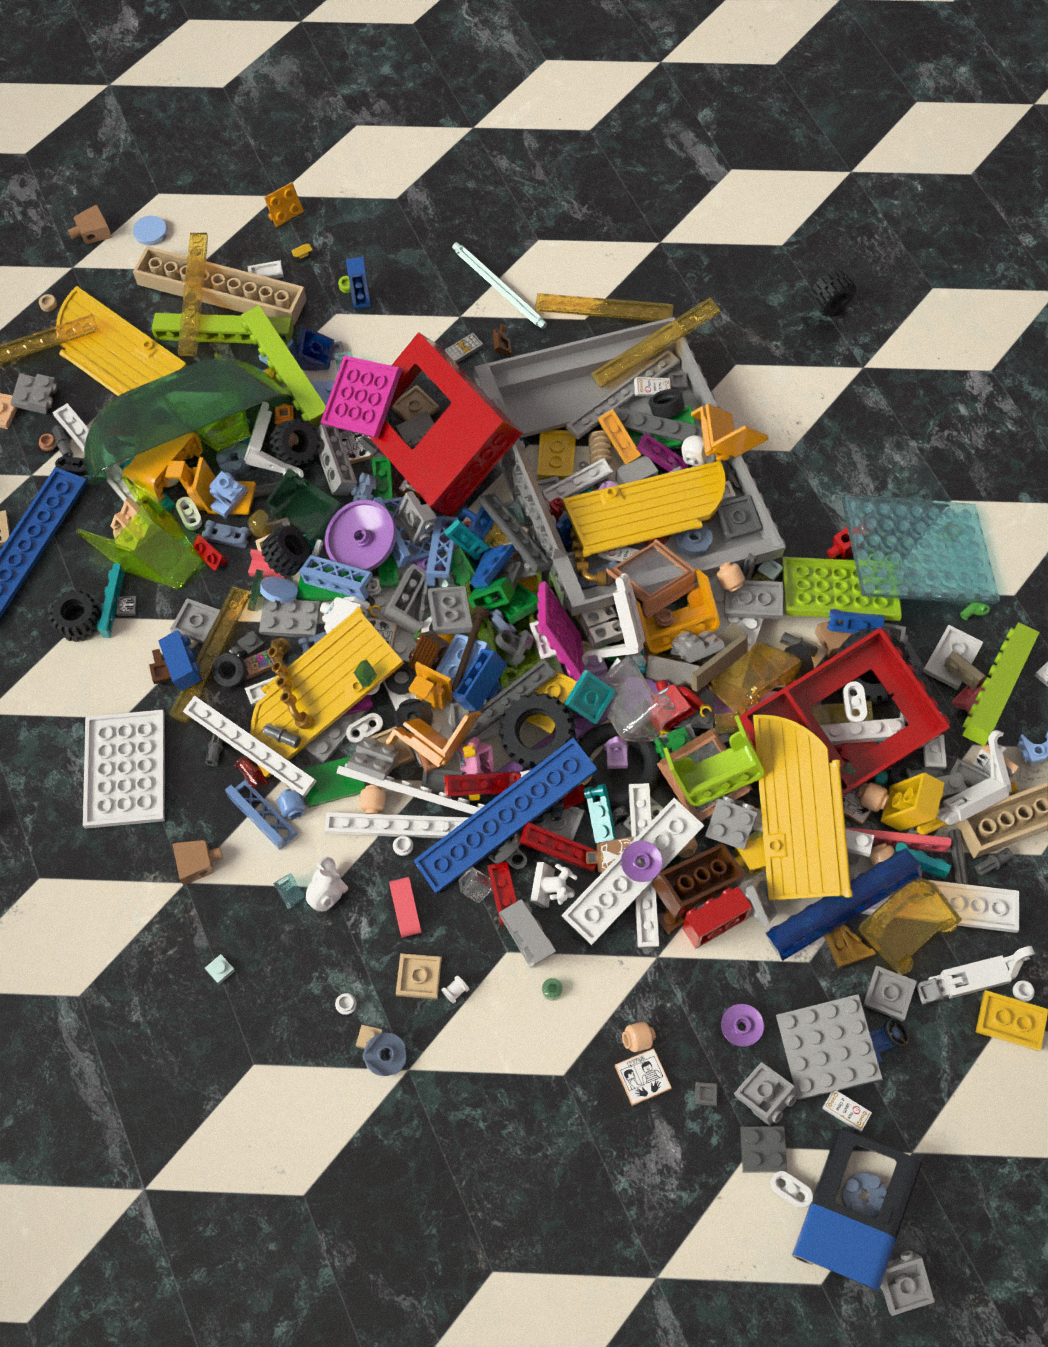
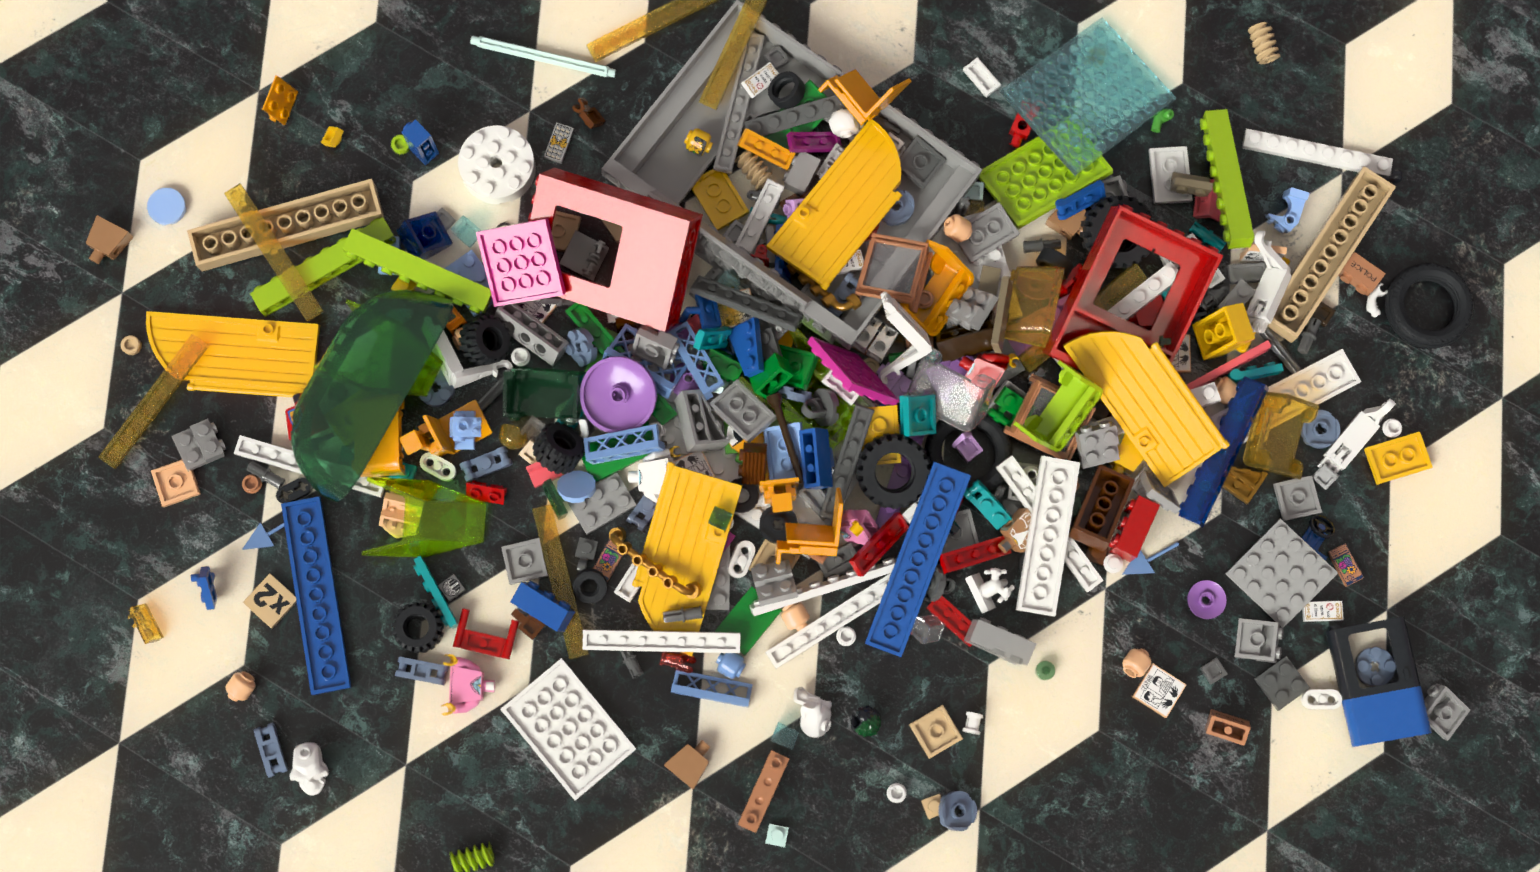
camera: 40 degrees left, 15 degrees up
(22, 484) = (260, 537): none -> medium blue piece
(53, 651) = (421, 671): none -> sand blue plate
(75, 682) = (466, 685): none -> bright pink torso
(115, 659) = (482, 642): none -> red plate
(232, 919) = (763, 791): none -> nougat fence
(270, 269) = (313, 179): white tile -> none
(314, 475) = (520, 356): none -> white plate
(365, 923) = (866, 722): none -> piece
(397, 325) = (494, 146): none -> white brick
(405, 907) = (886, 685): coral beam -> none
(567, 399) = (698, 142): none -> yellow head
(645, 851) = (1062, 522): medium lavender dish -> none
(678, 938) = (1113, 563): none -> white plate
(682, 1150) = (1227, 727): none -> nougat brick
(703, 957) = (1140, 564): none -> medium blue piece
(837, 488) = (981, 77): none -> white plate
(855, 702) = (1138, 282): white plate -> none
(873, 797) = (1190, 345): light nougat head -> none
(897, 1083) = (1345, 565): none -> tile
(951, 959) = (1327, 438): none -> sand blue plate
(955, 725) = (1207, 236): none -> teal pin
(1021, 852) = (1323, 313): none -> dark brown tile

